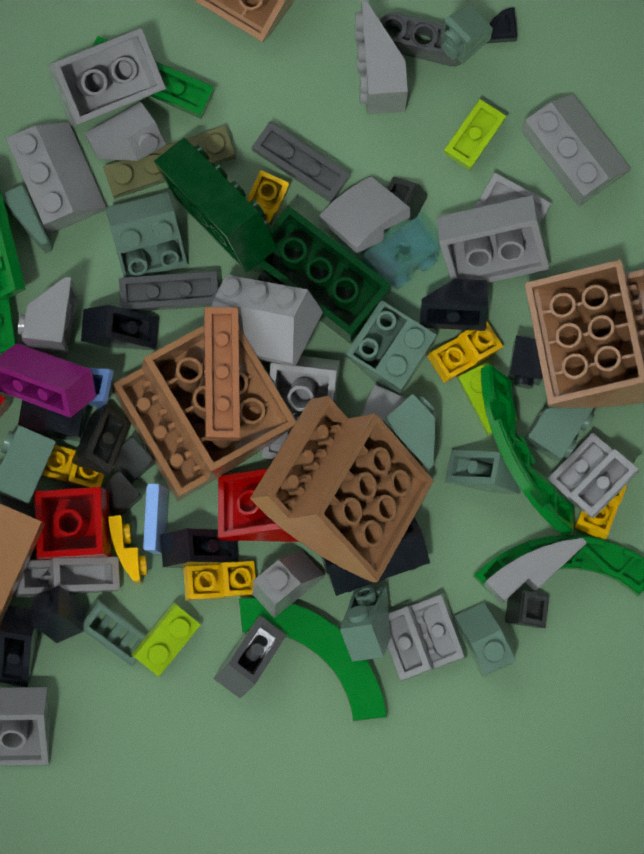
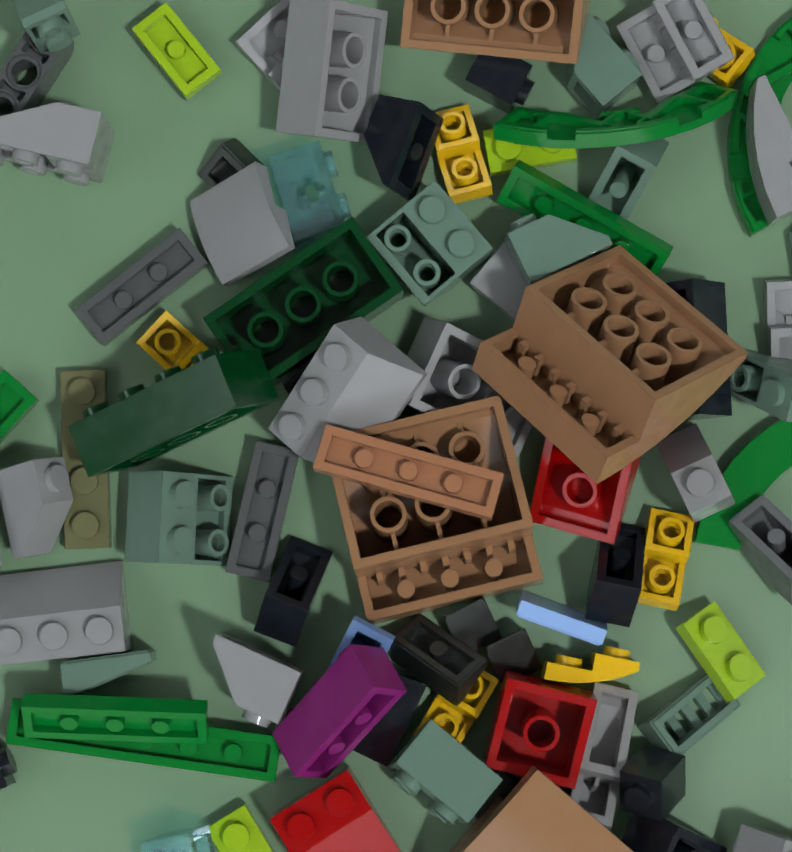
camera: 70 degrees left, 5 degrees up
(450, 424) = (537, 193): none -> green plate

